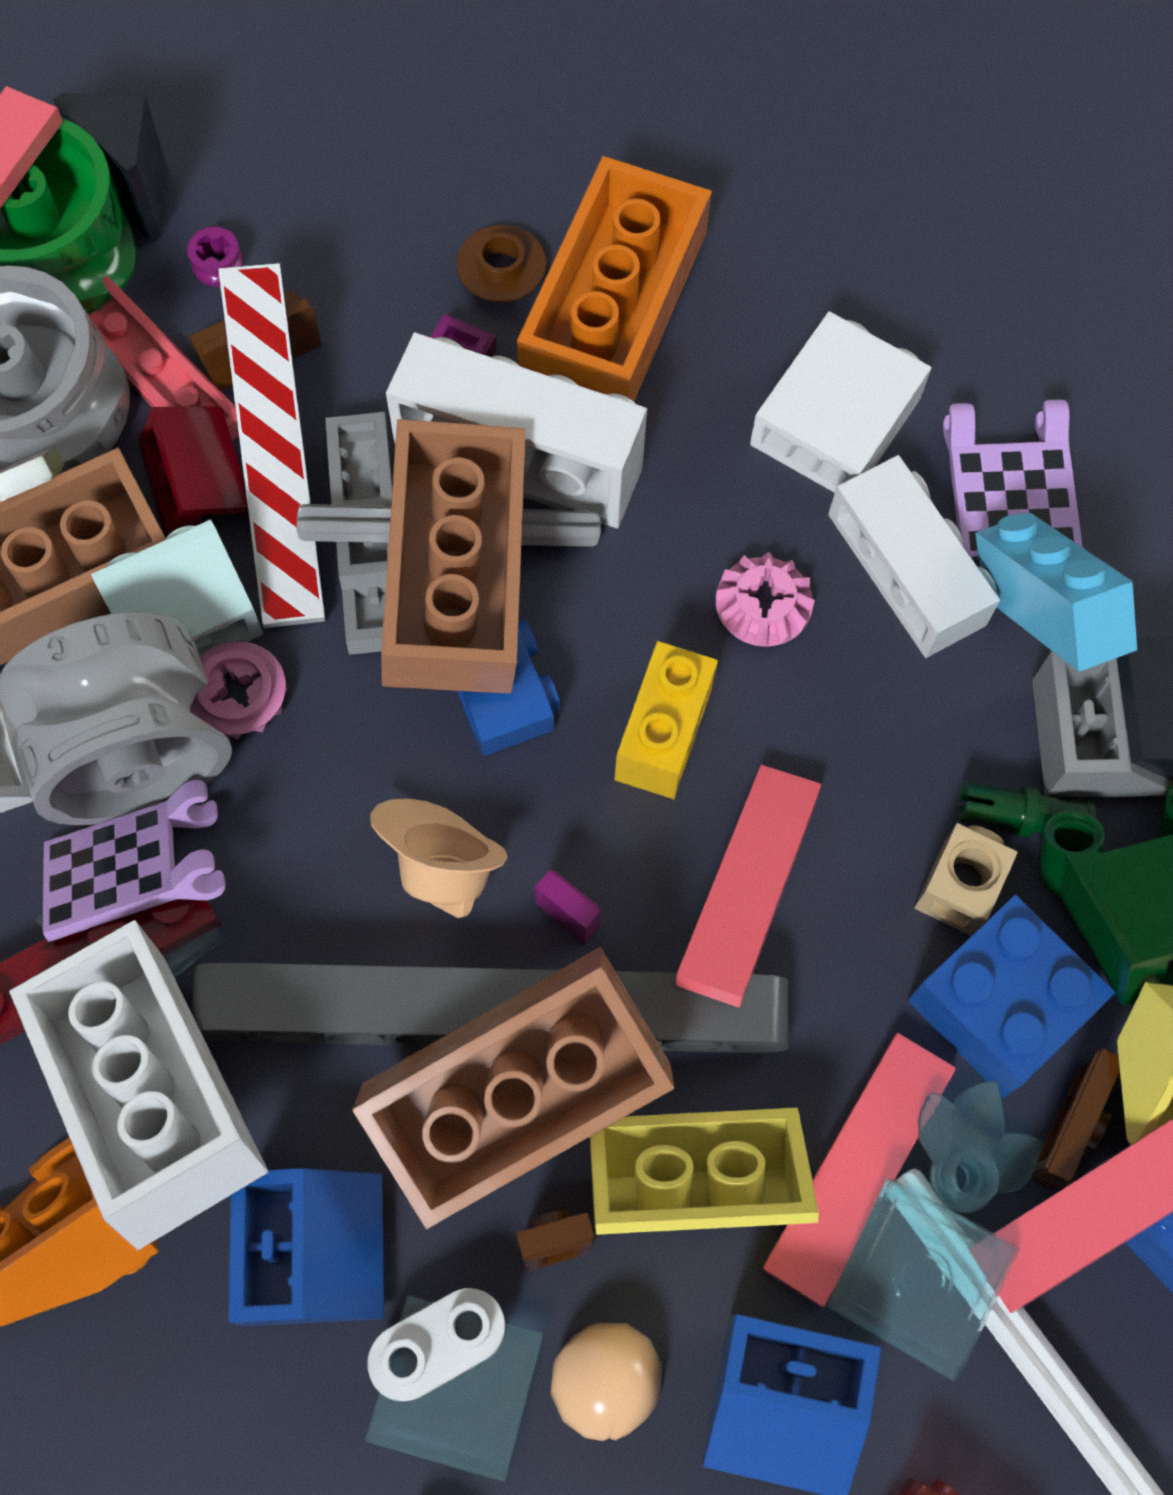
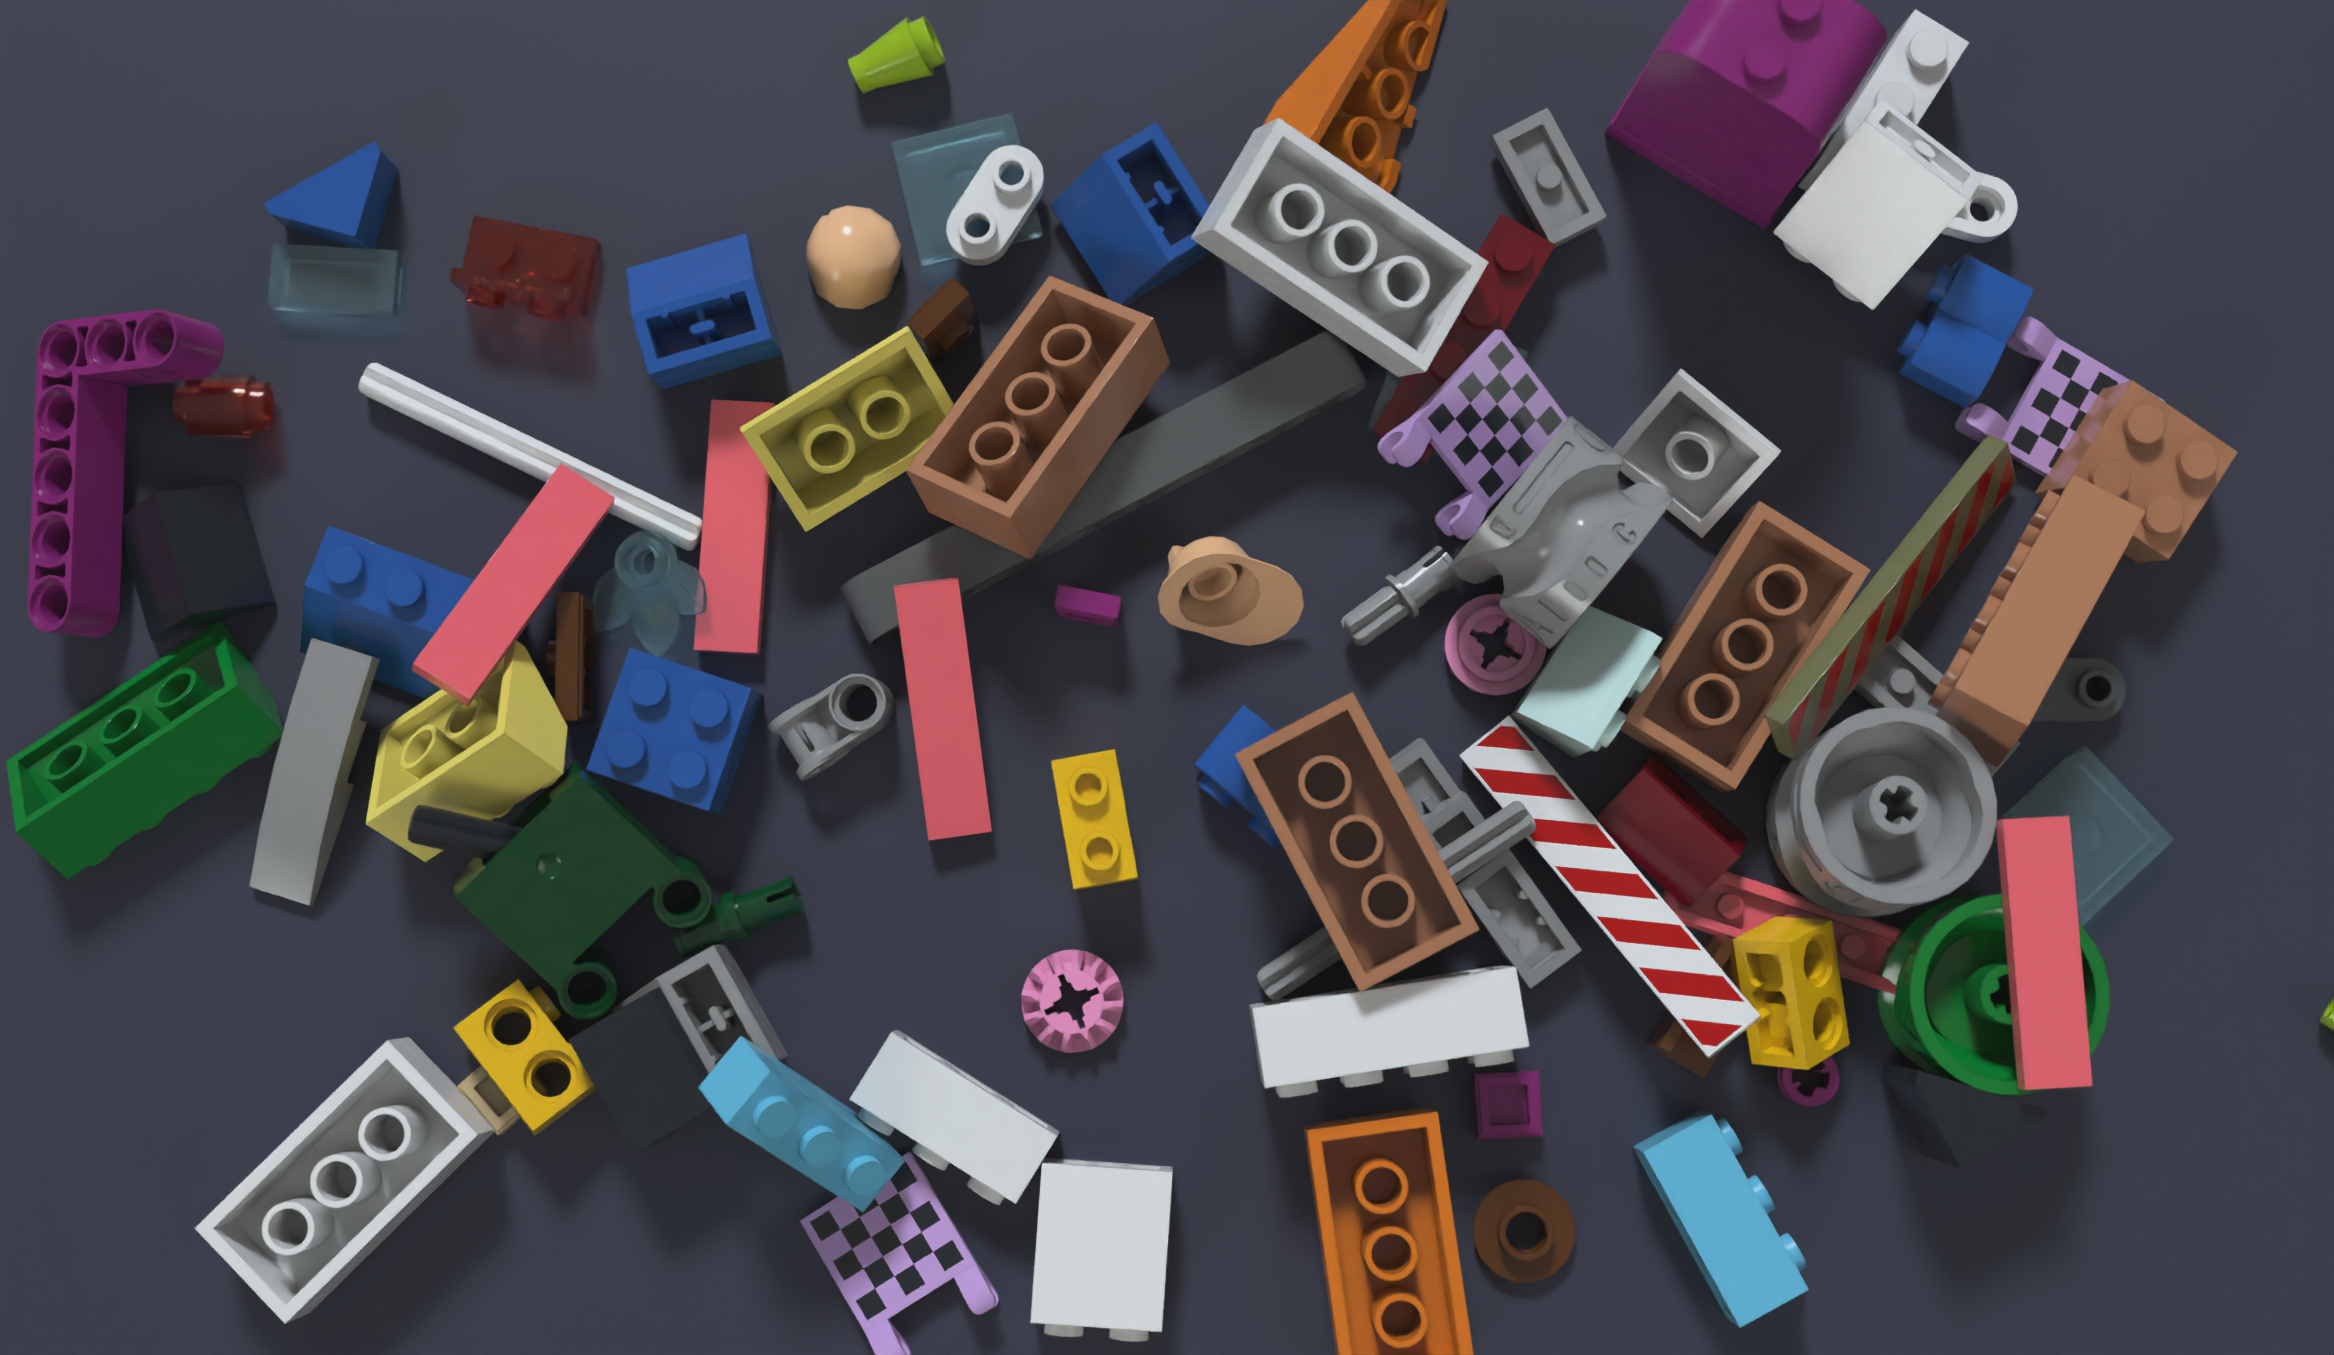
camera: 155 degrees right, 15 degrees up
(179, 298) = (1795, 986): none -> yellow brick
(289, 769) = (1400, 597): none -> light grey axle
(345, 194) = (1723, 1216): none -> medium azure brick
(868, 929) = (830, 724): none -> light grey piece
(923, 1278) = (642, 457): clear light blue tile -> none
(955, 902) = (745, 796): tan brick -> none

